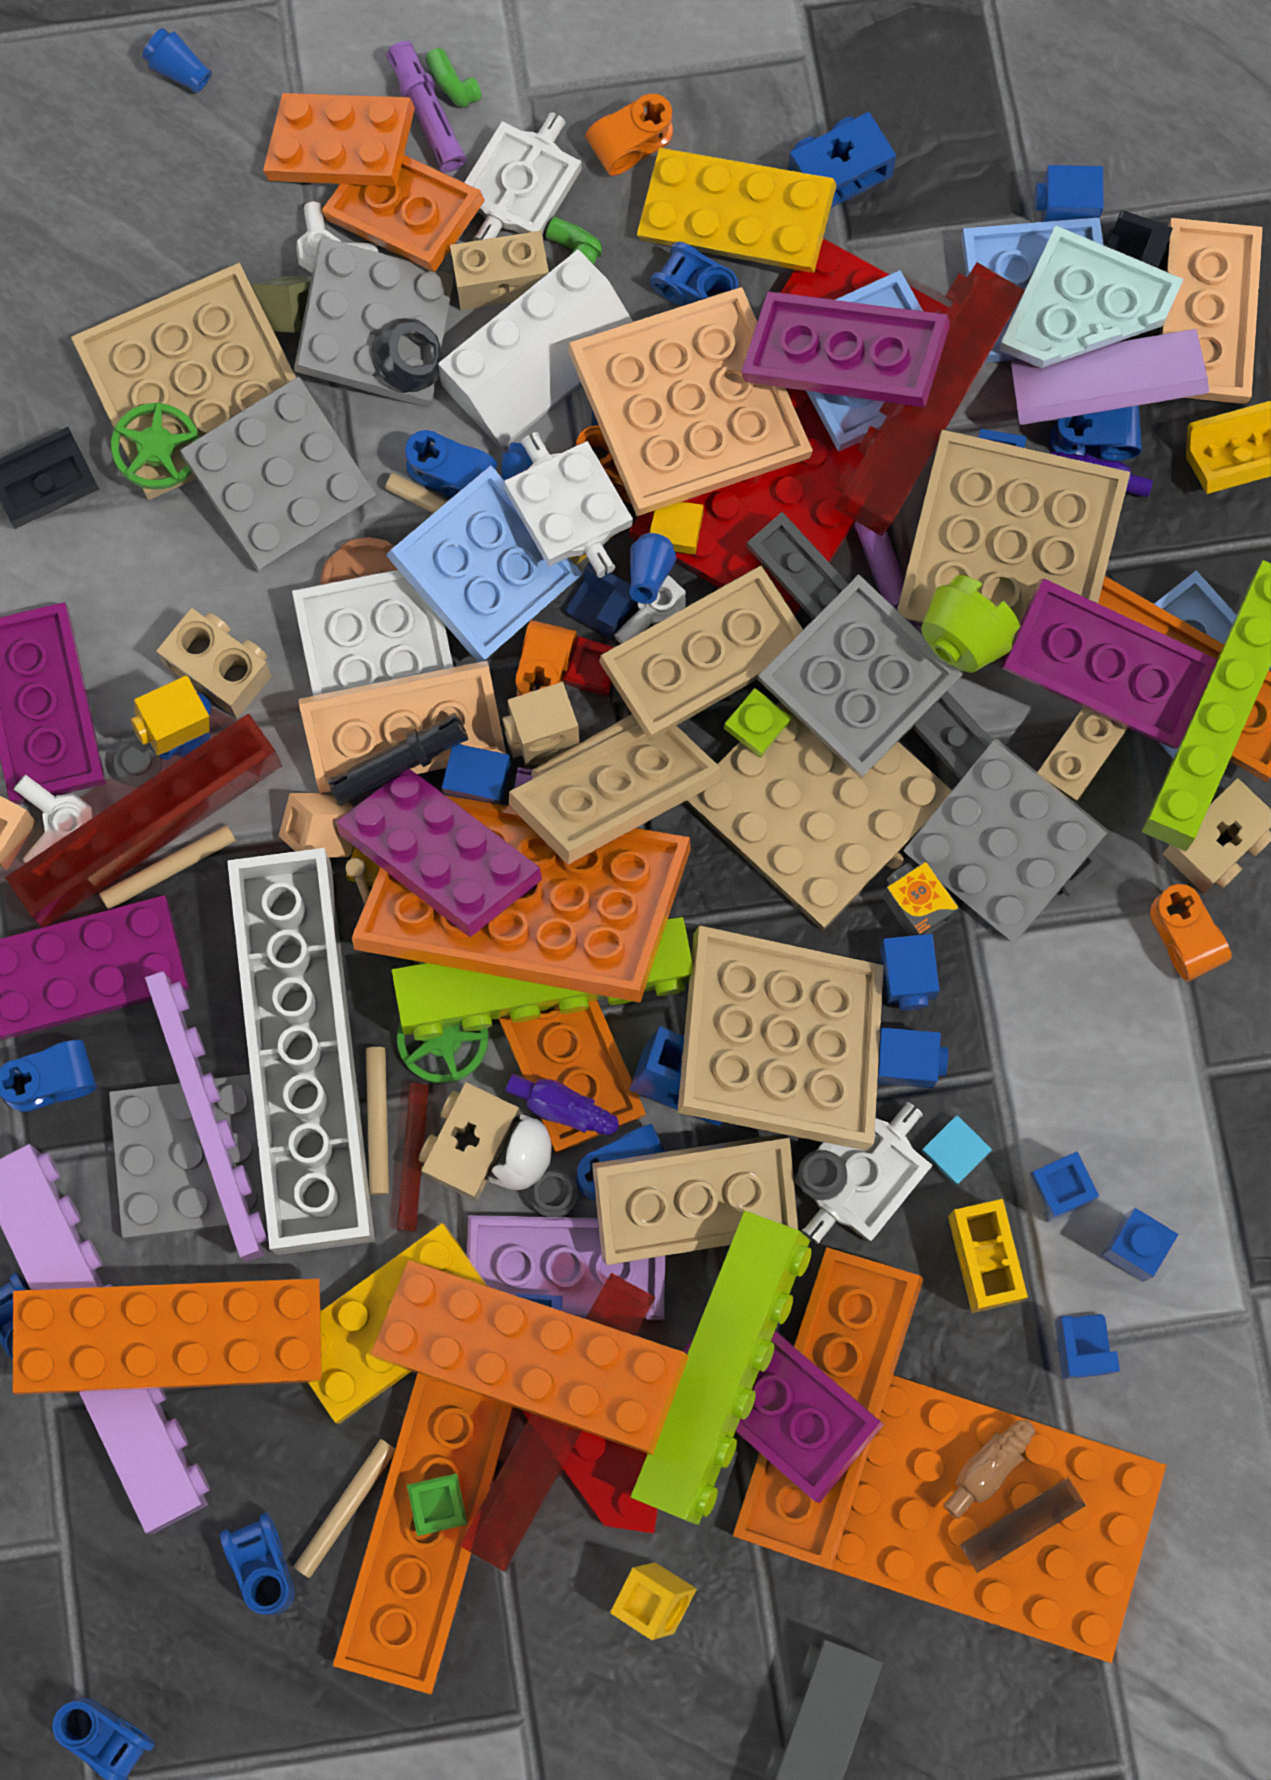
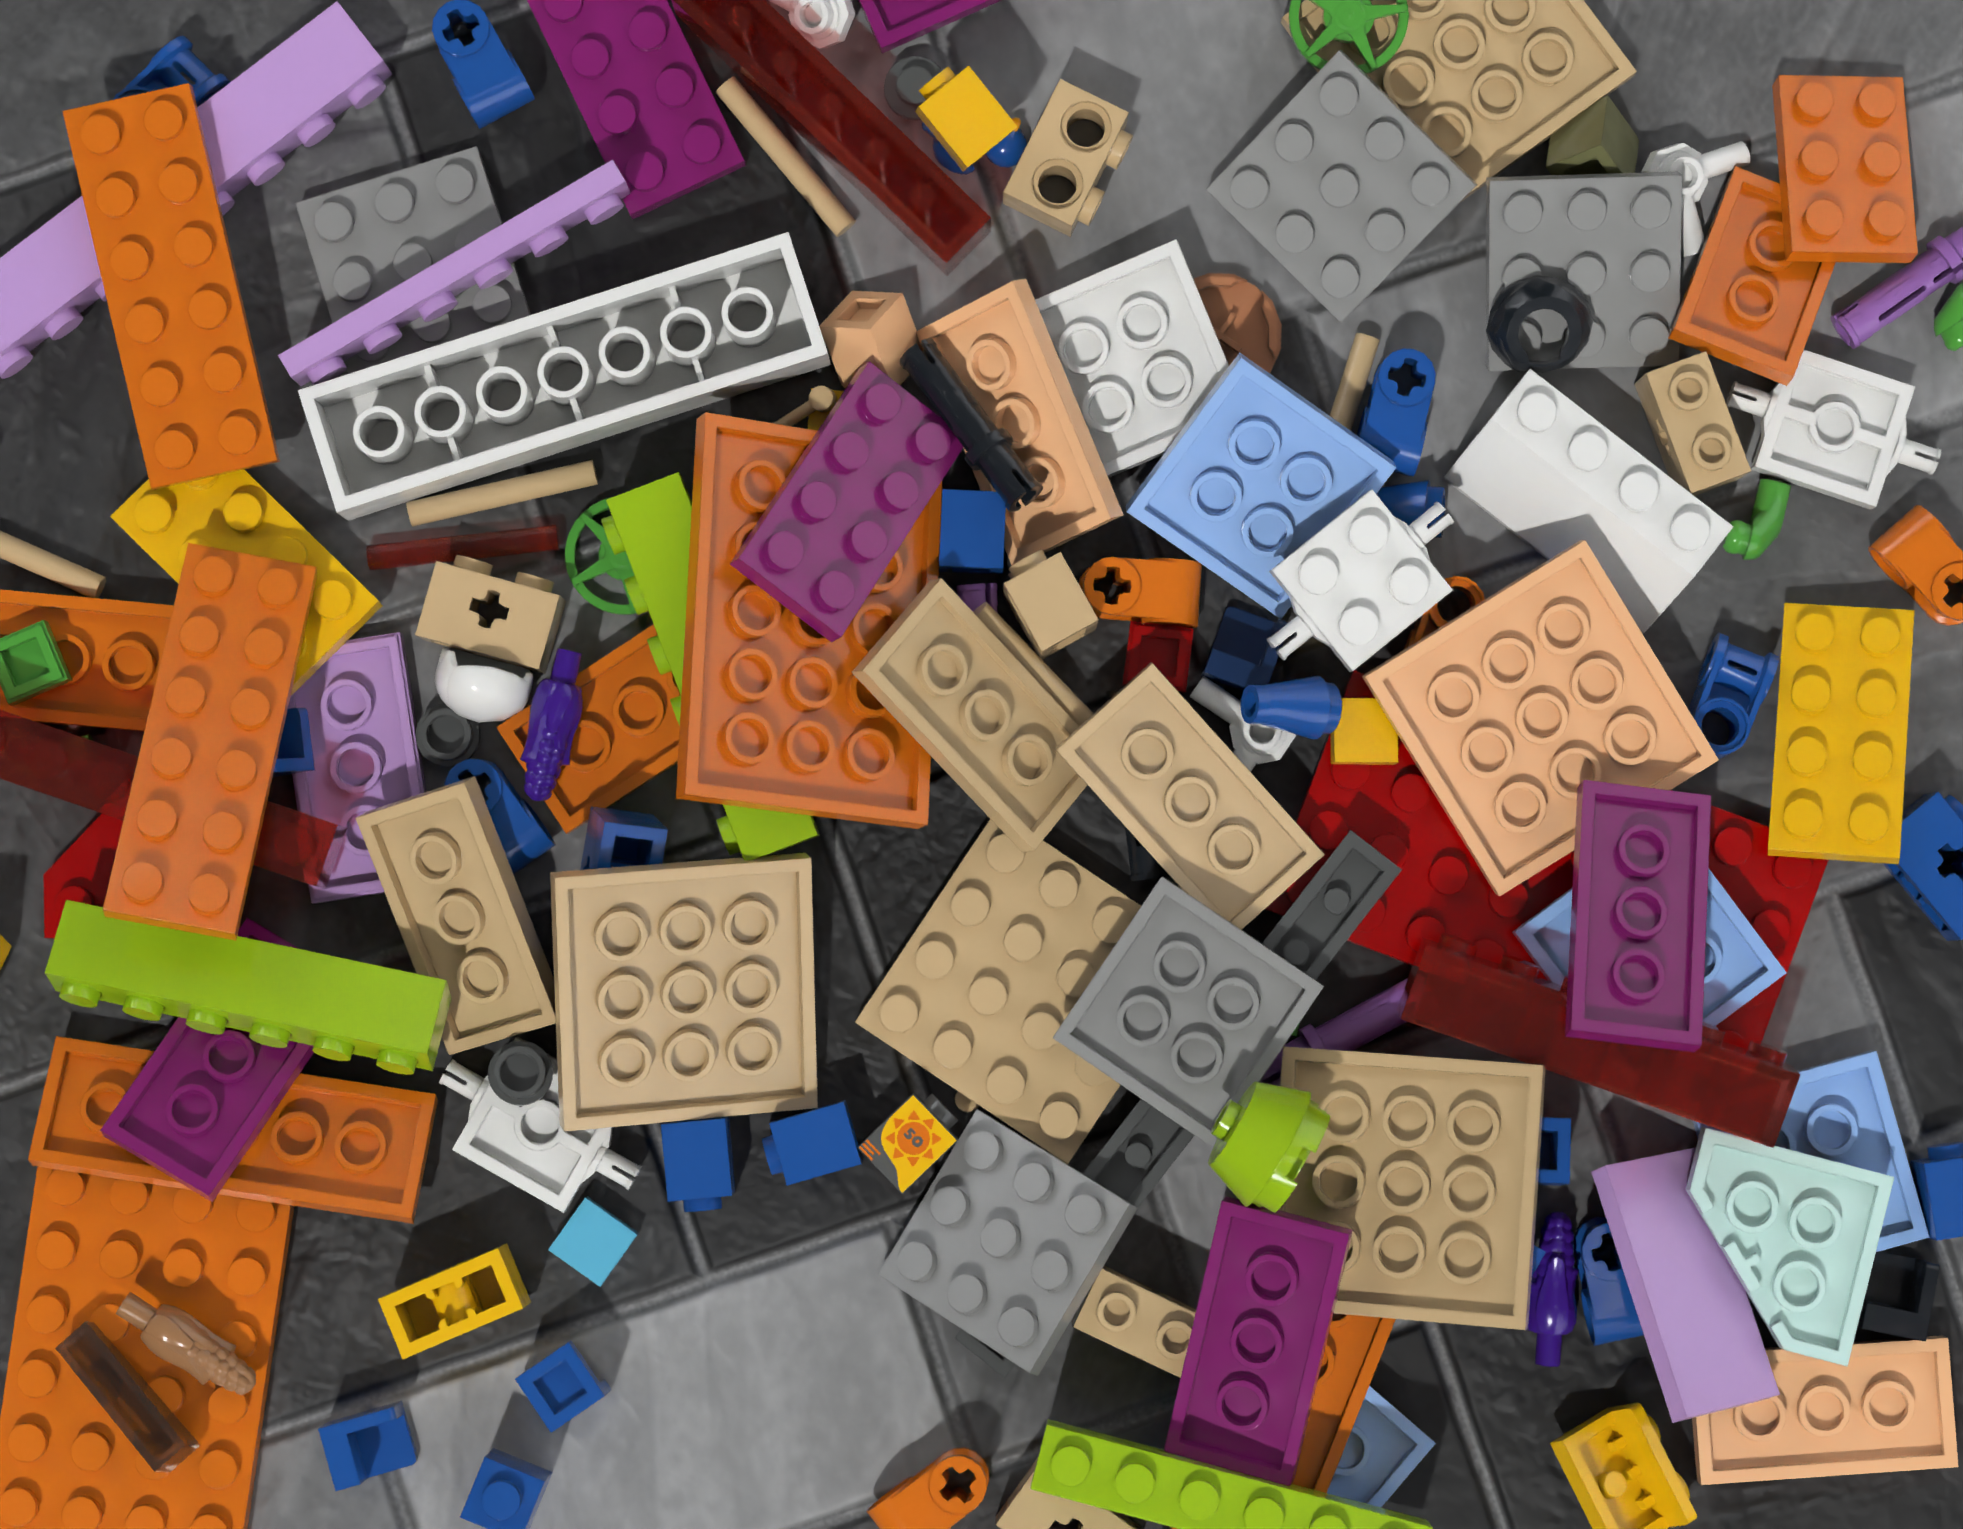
camera: 80 degrees right, 10 degrees up
(757, 722) = (1109, 887): lime plate -> none

